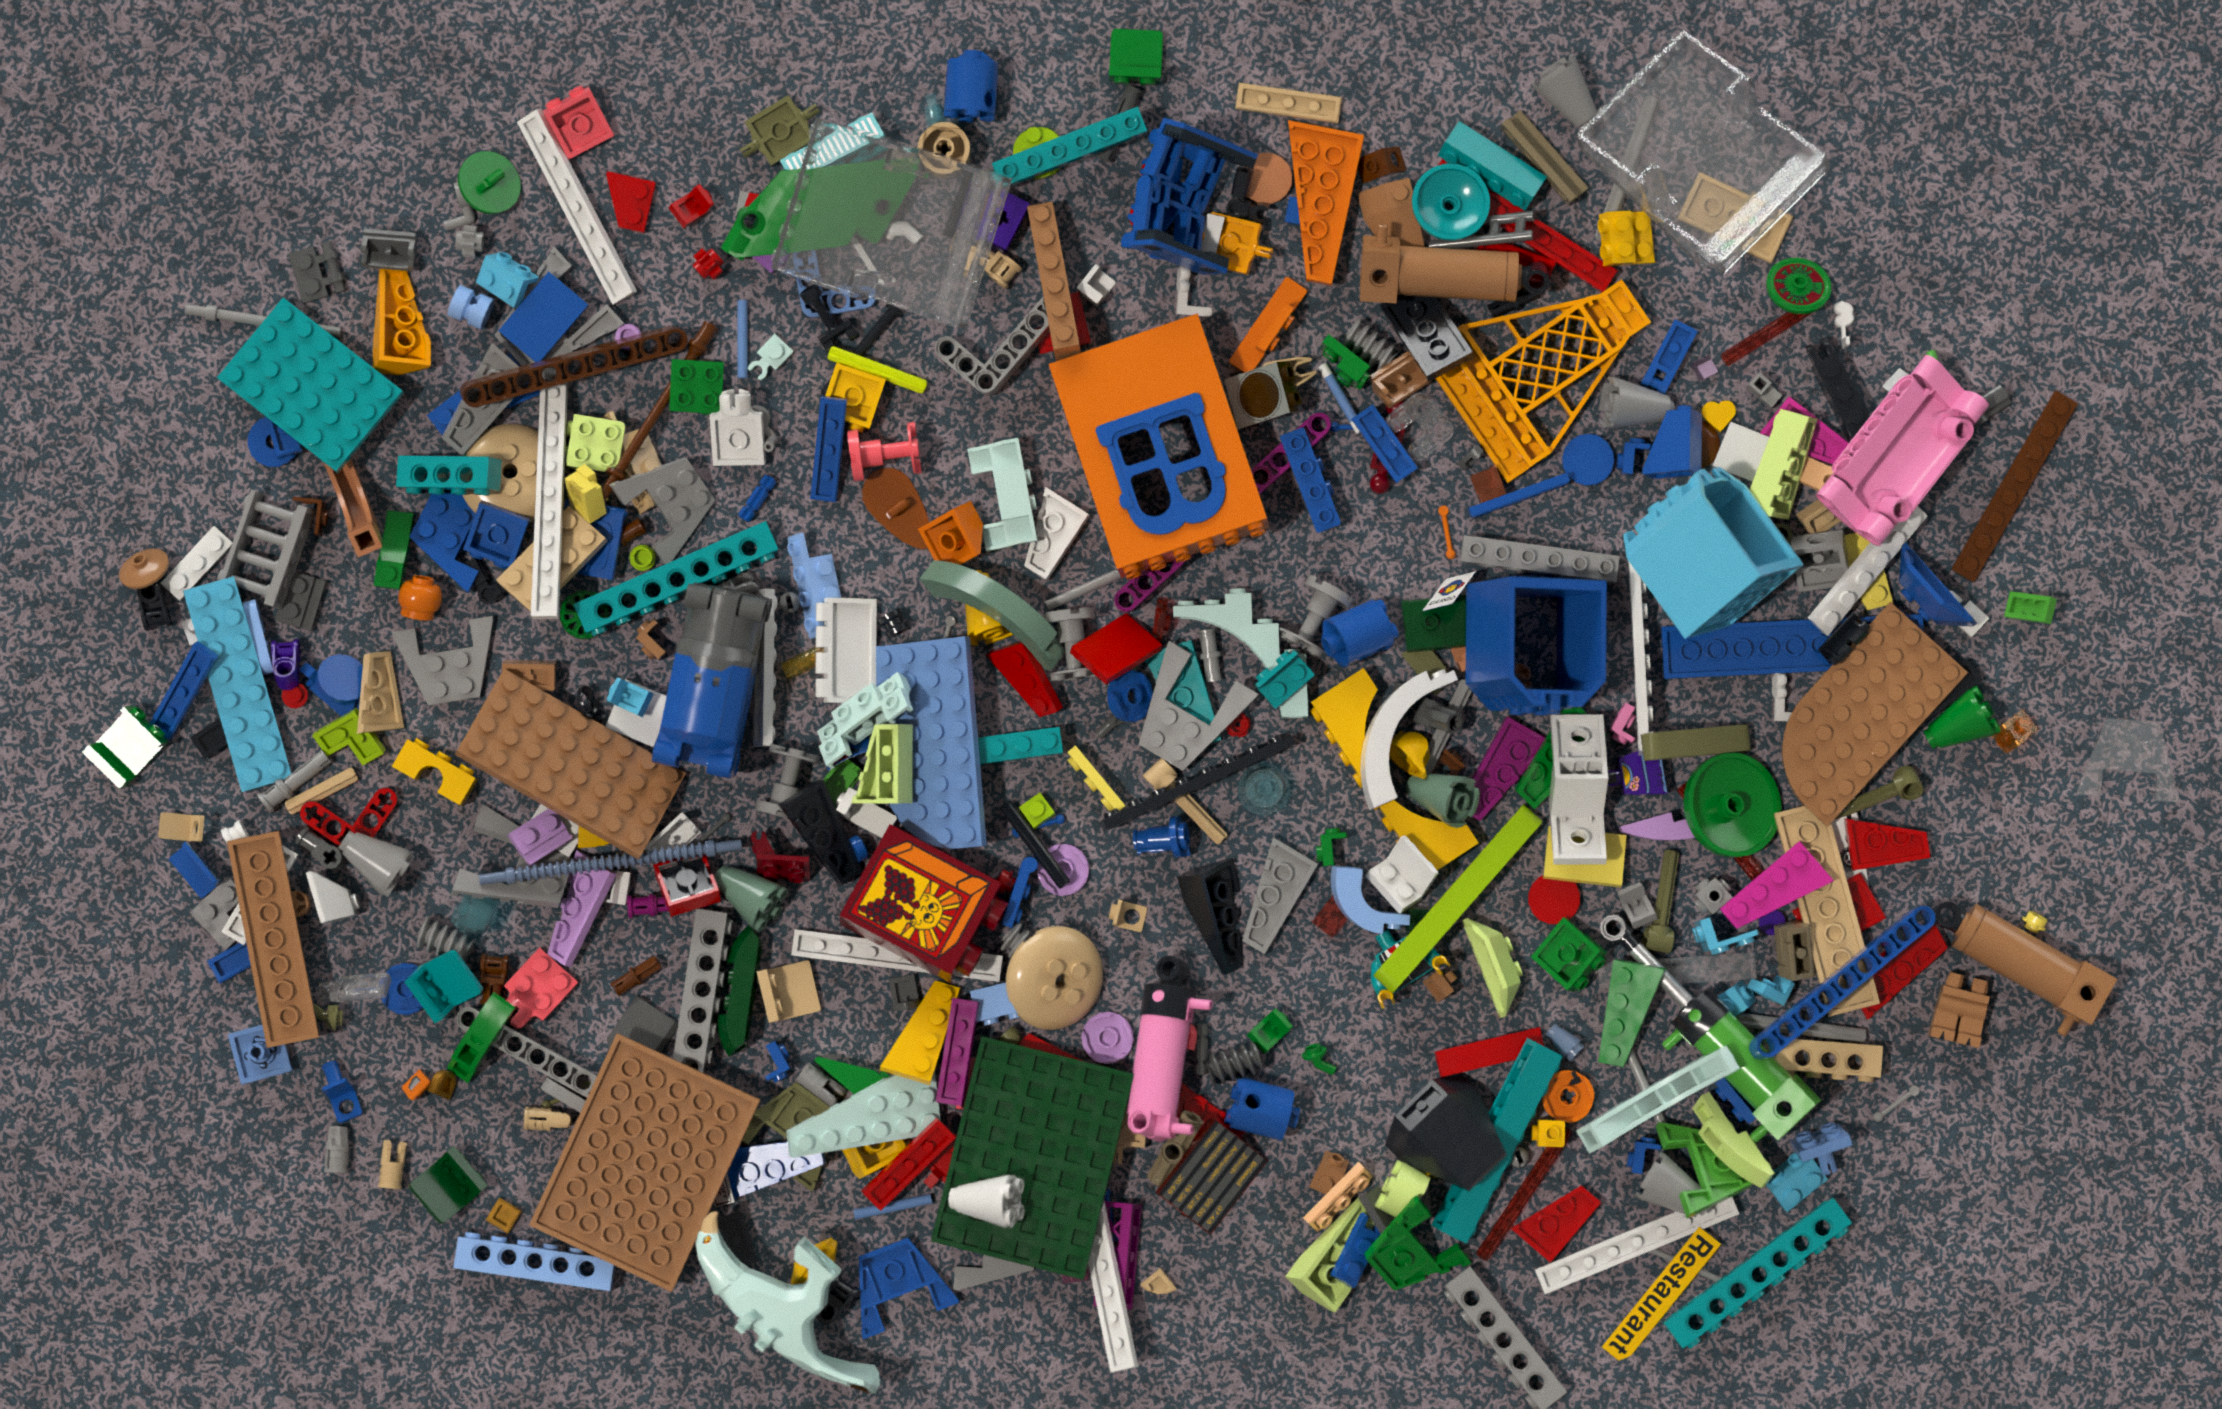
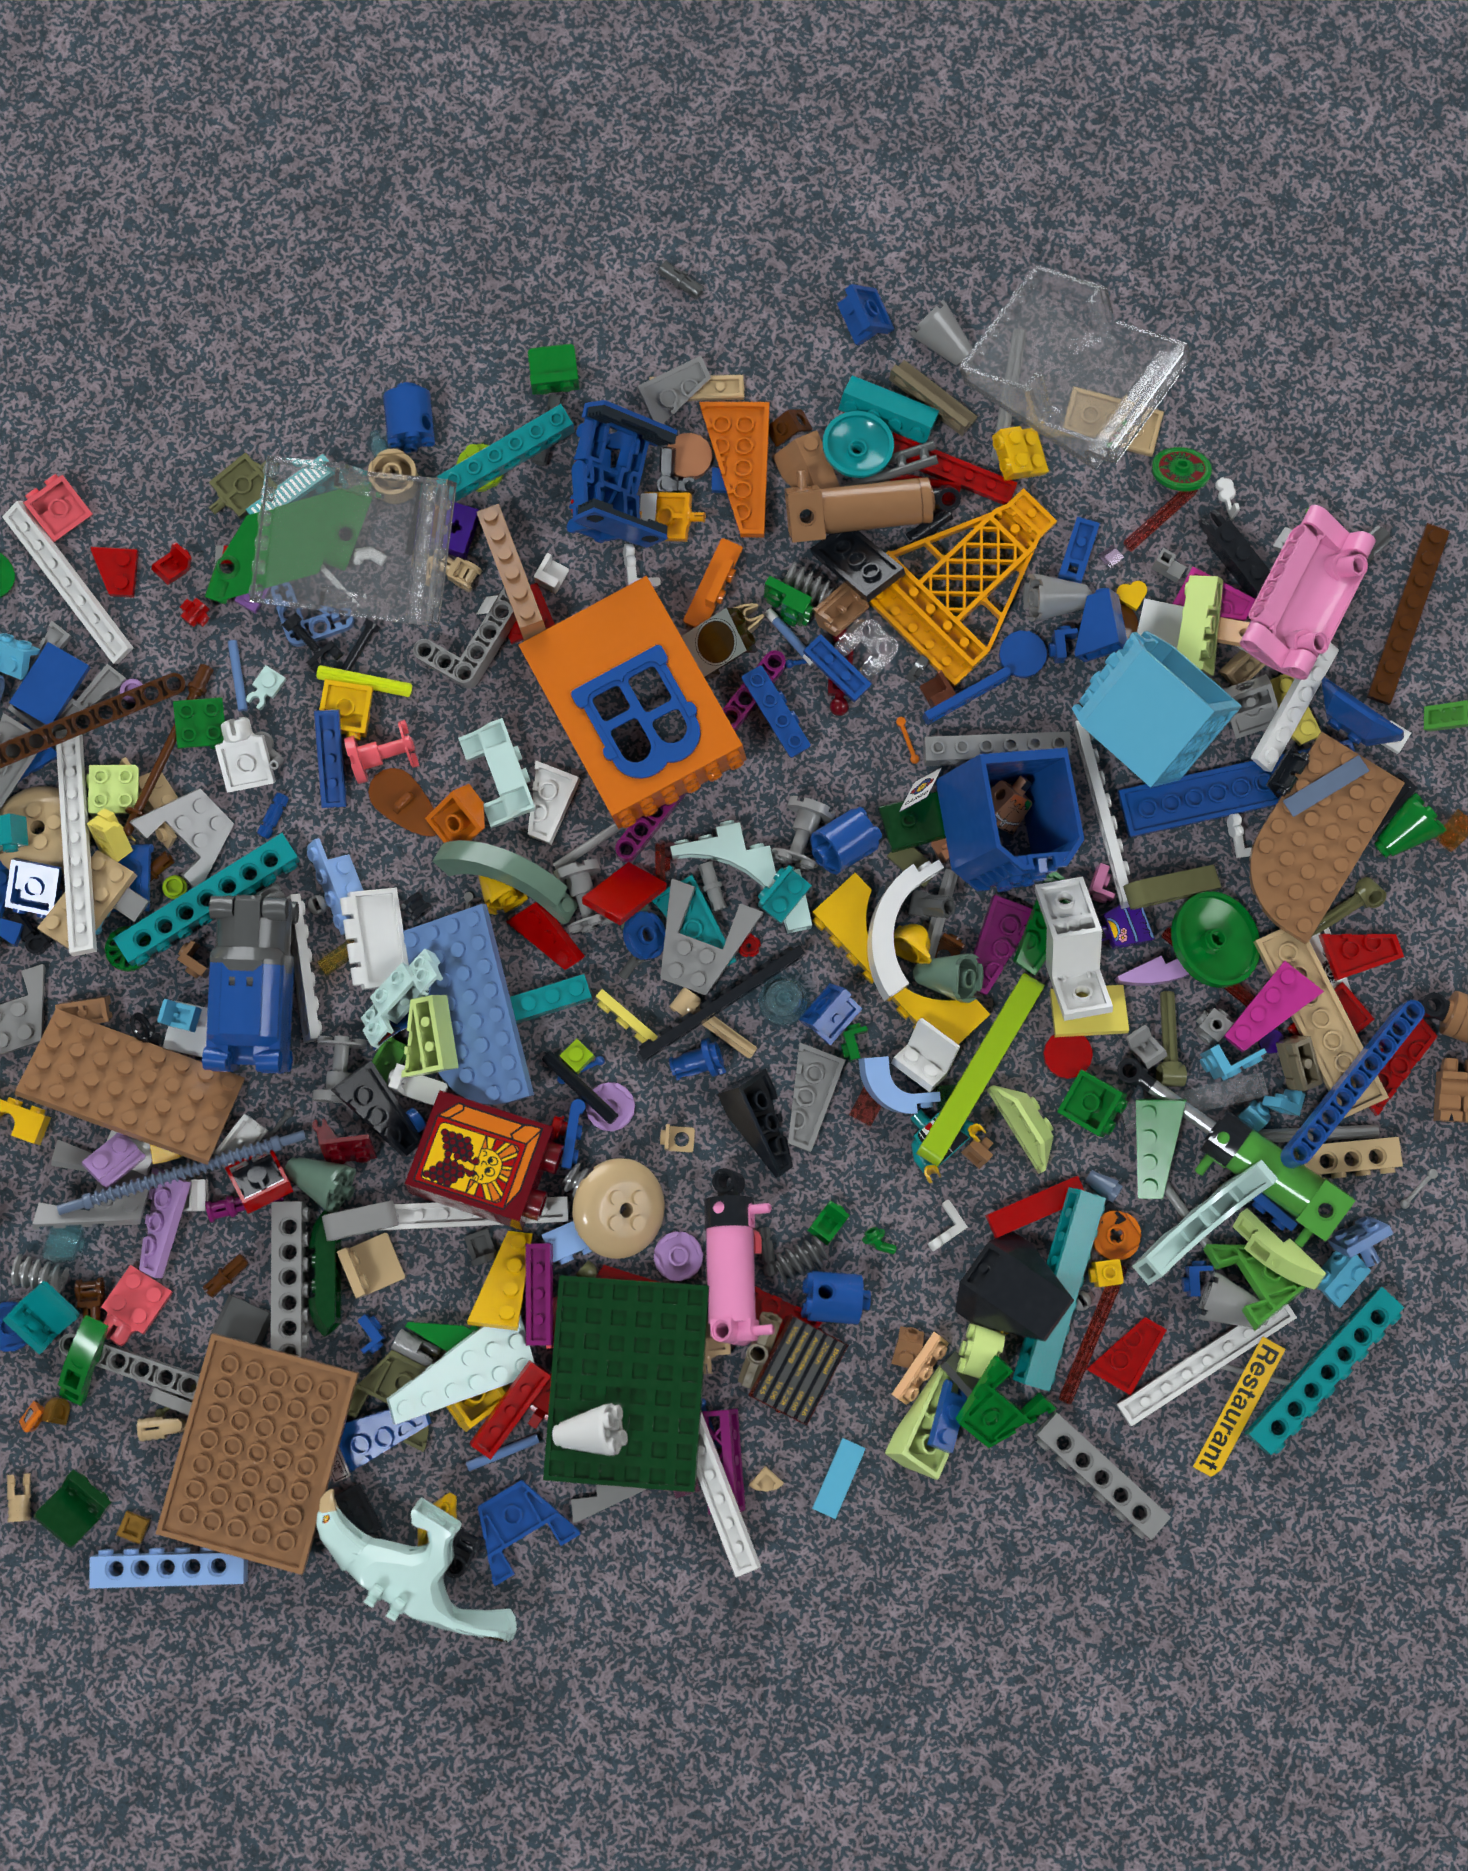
camera: 15 degrees left, 5 degrees down
(597, 571) = (131, 904): none -> light grey tile
(785, 944) = (360, 1220): none -> light grey beam
(1021, 309) = (487, 604): none -> white sticker
(1233, 1293) = (838, 1478): none -> medium azure tile
(1262, 102) = (673, 388): none -> light grey wing
(1311, 812) = (831, 1013): none -> blue bracket
(1406, 1057) = (951, 1232): none -> white piece
(1486, 51) = (864, 313): none -> blue bracket
(1538, 623) = (1011, 803): none -> nougat torso
(1881, 662) = (1326, 785): none -> sand blue sticker

